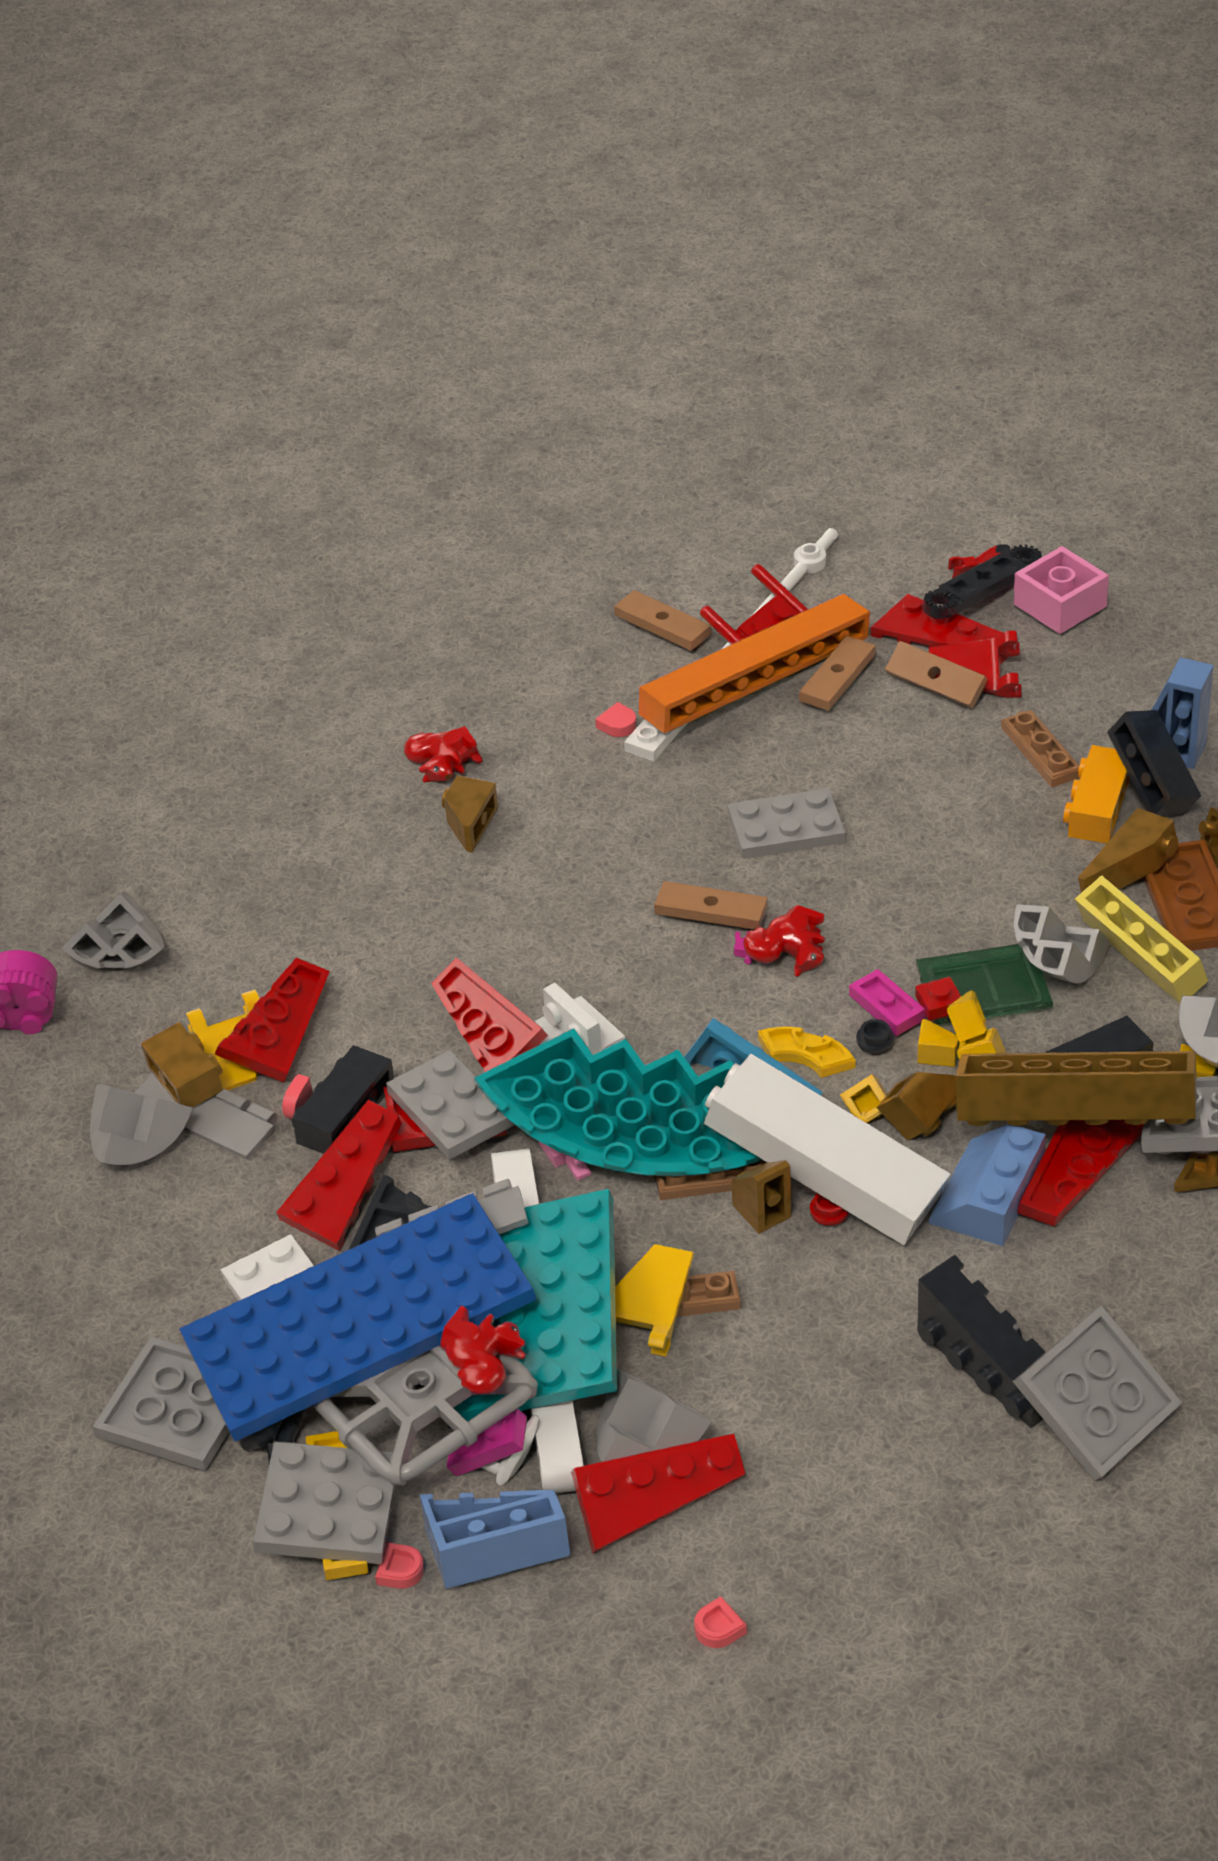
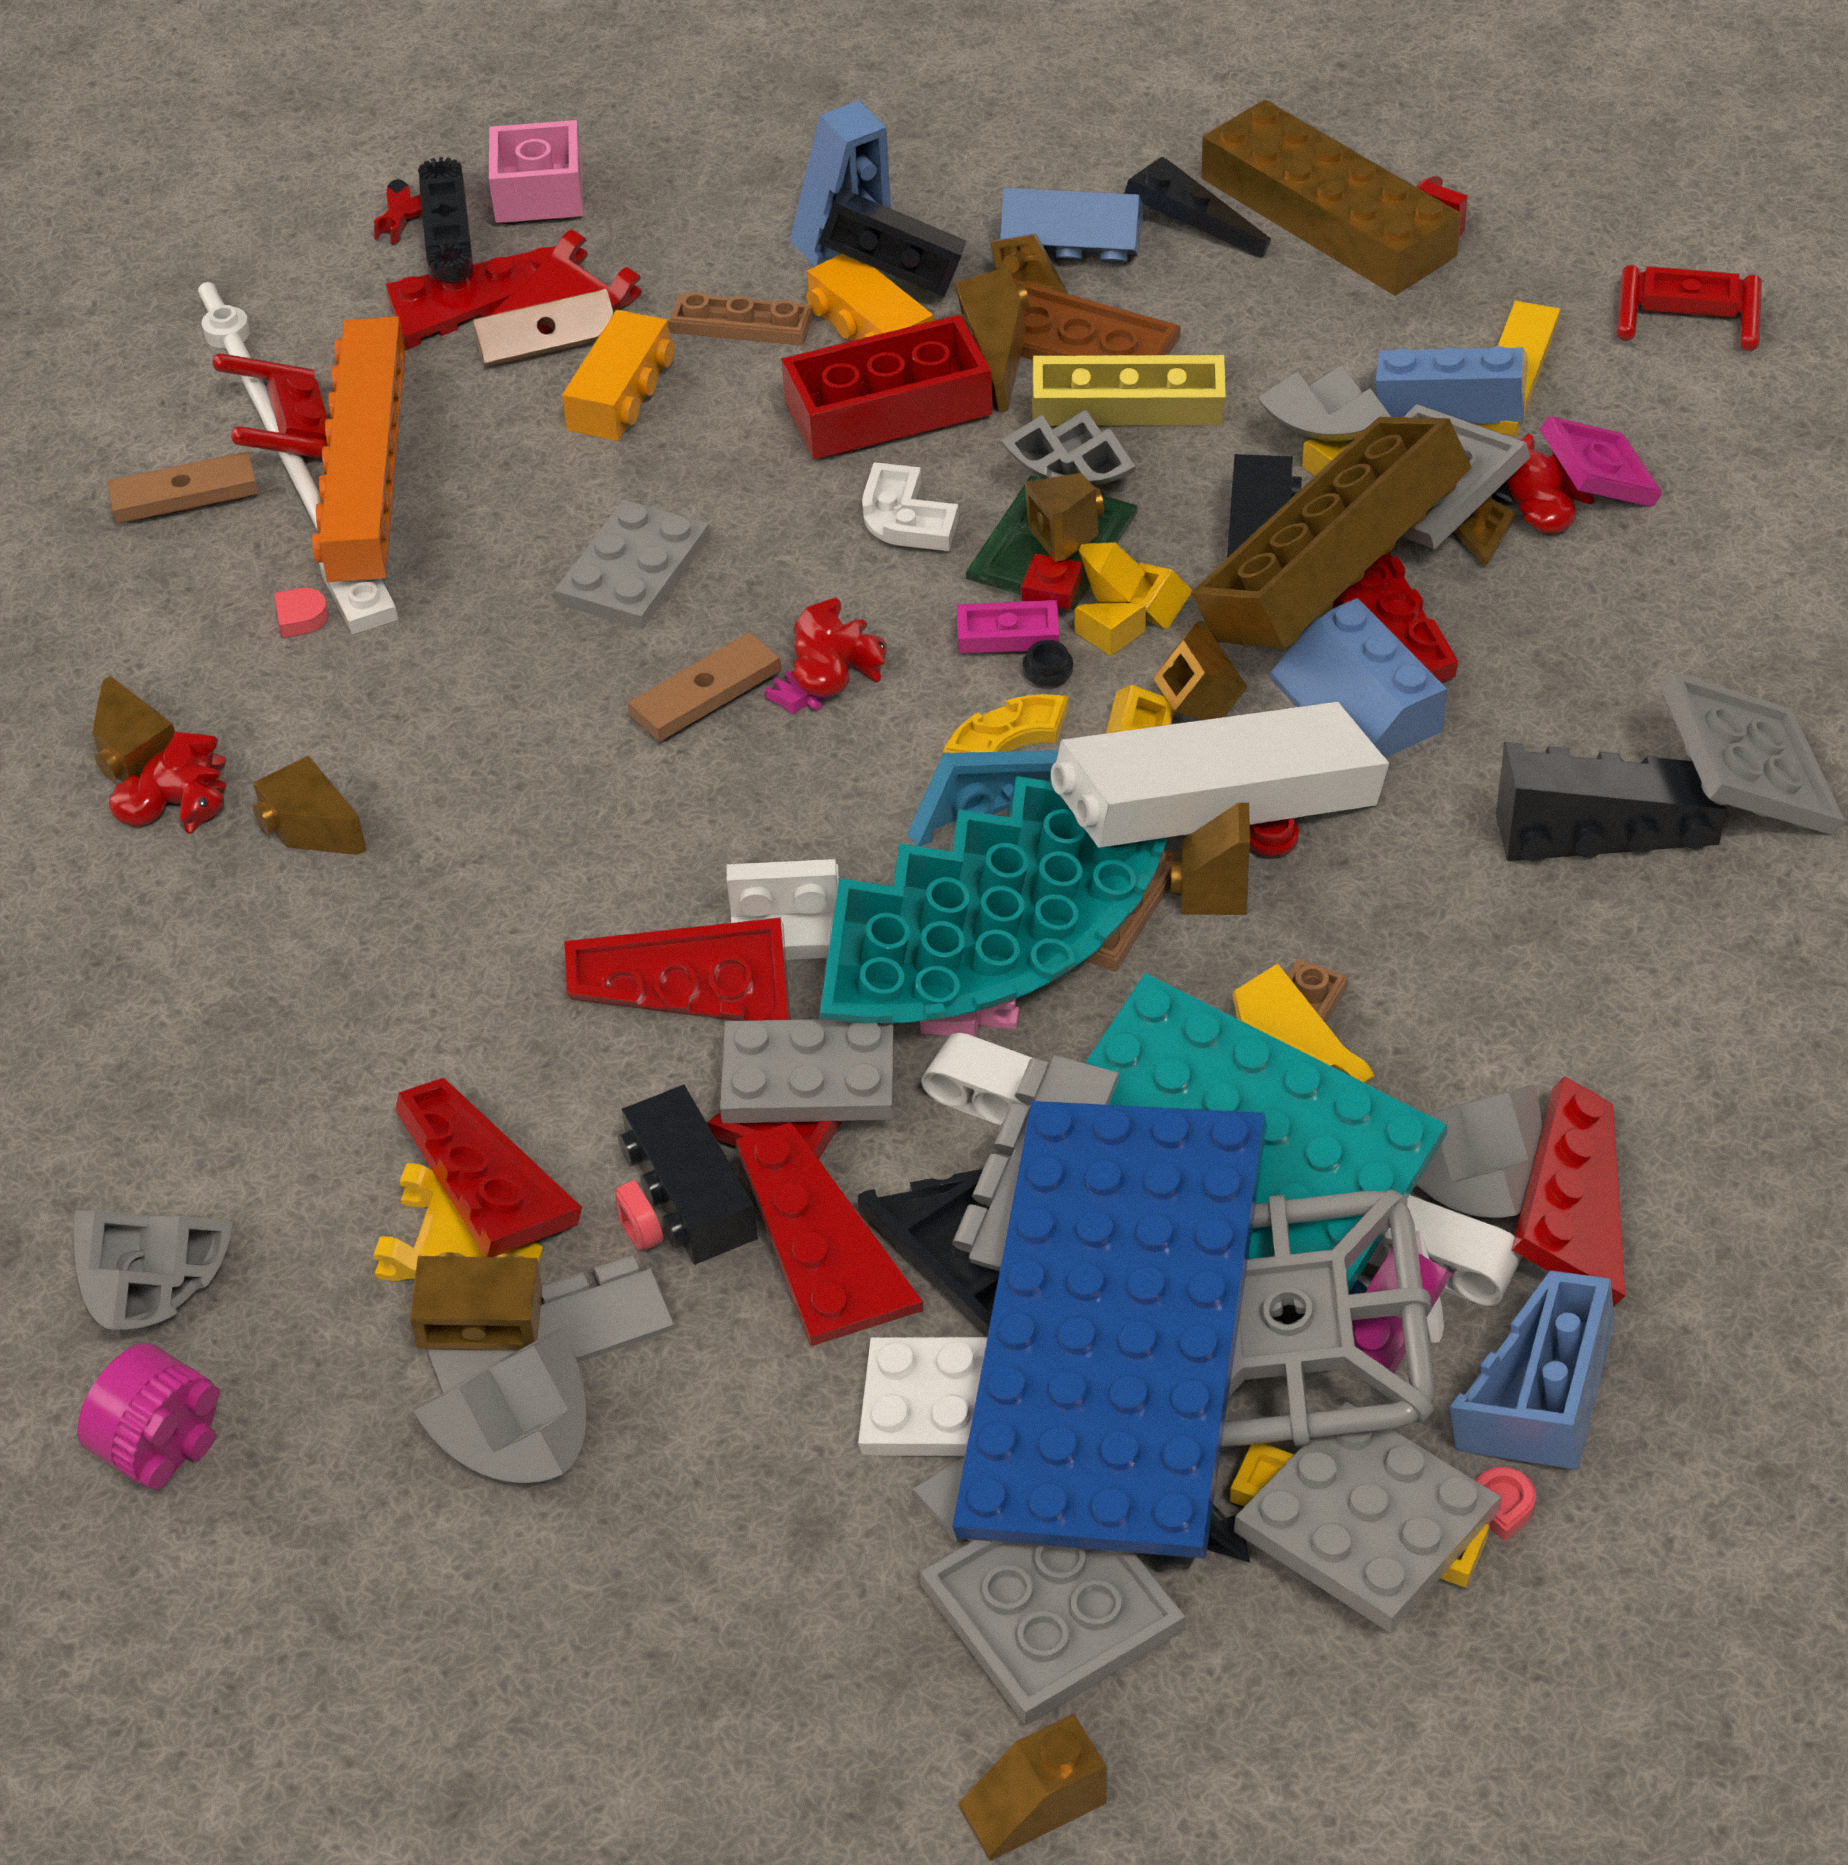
camera: 55 degrees left, 5 degrees up
(55, 1459) = (1036, 1788): none -> pearl gold slope
(459, 708) = (127, 731): none -> pearl gold slope
(474, 1350) = (1312, 1217): red animal -> none
(718, 1624) = (1810, 1243): coral tile -> none
(837, 673) = (447, 399): medium nougat tile -> none
(928, 725) = (617, 375): none -> light orange brick
(936, 903) = (899, 518): none -> white plate
(986, 967) = (1063, 513): none -> pearl gold slope
(1028, 834) = (887, 386): none -> red brick

